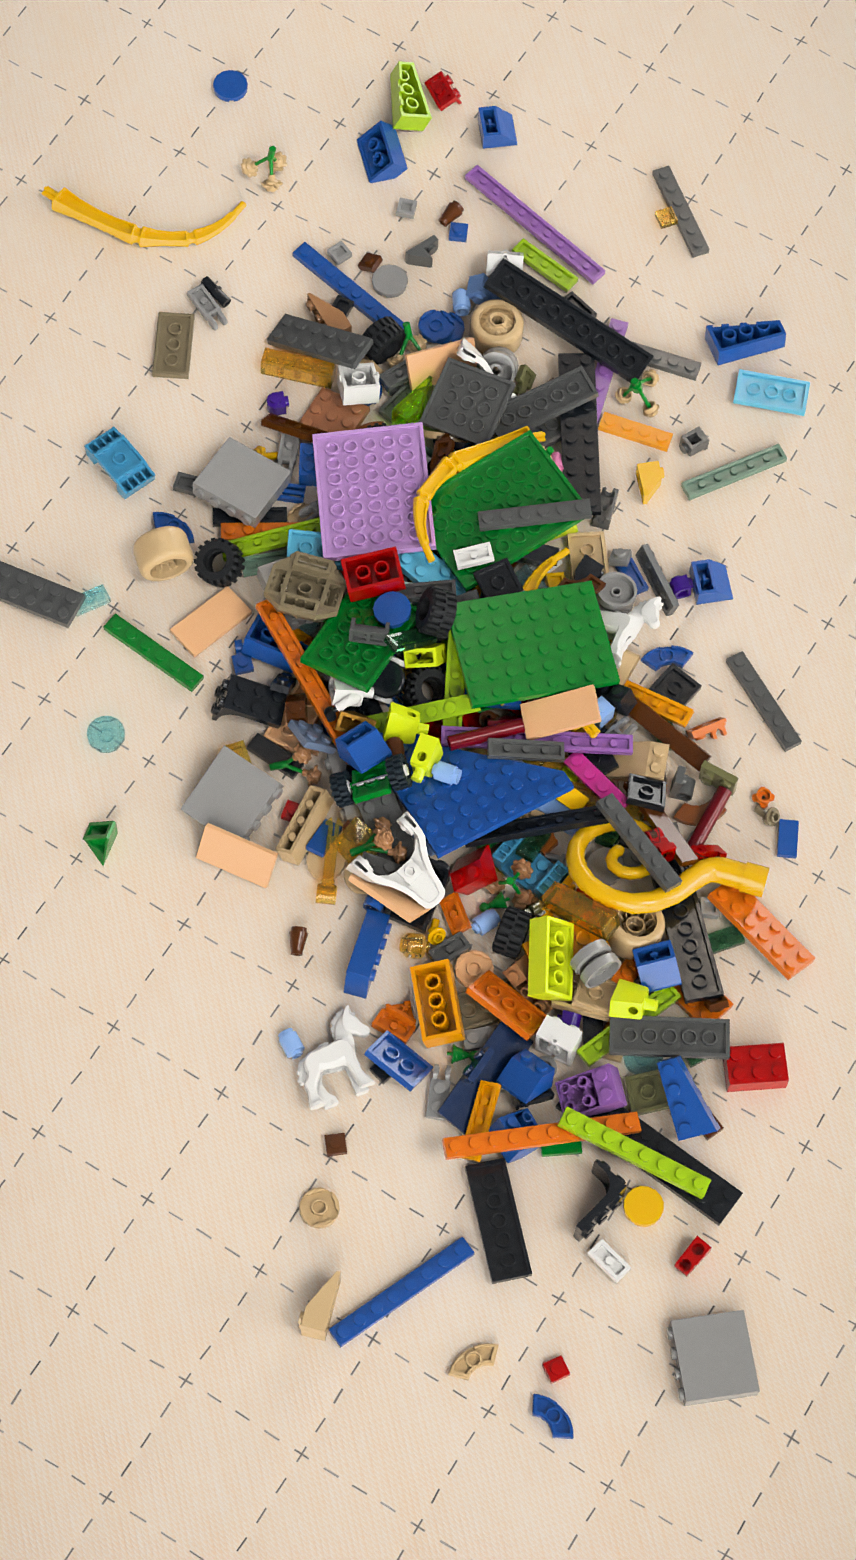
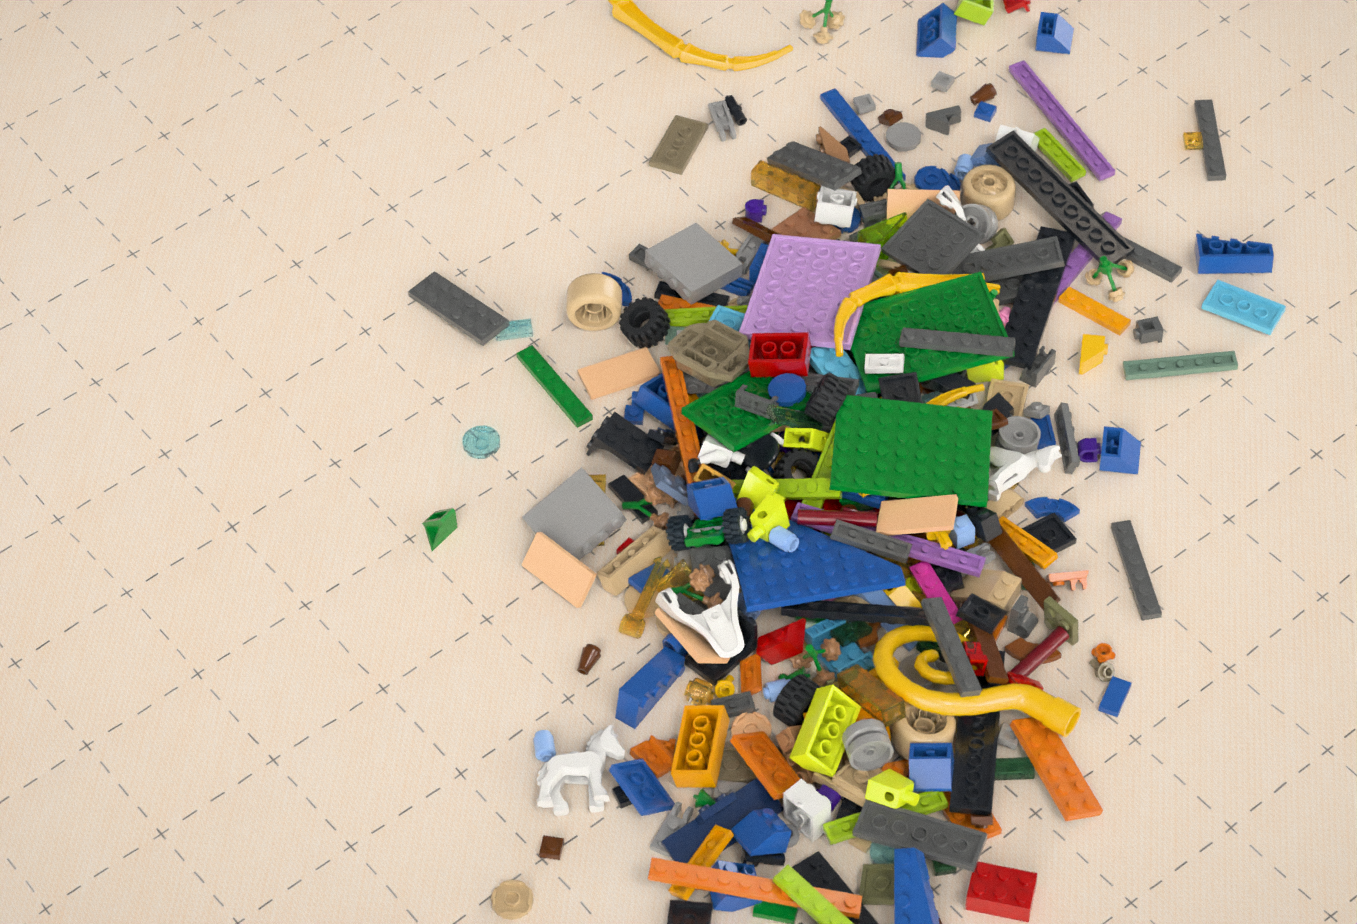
camera: 25 degrees right, 15 degrees down
(120, 462) = (588, 224): dark azure plate -> none
(592, 1091) = (826, 864): medium lavender slope -> none

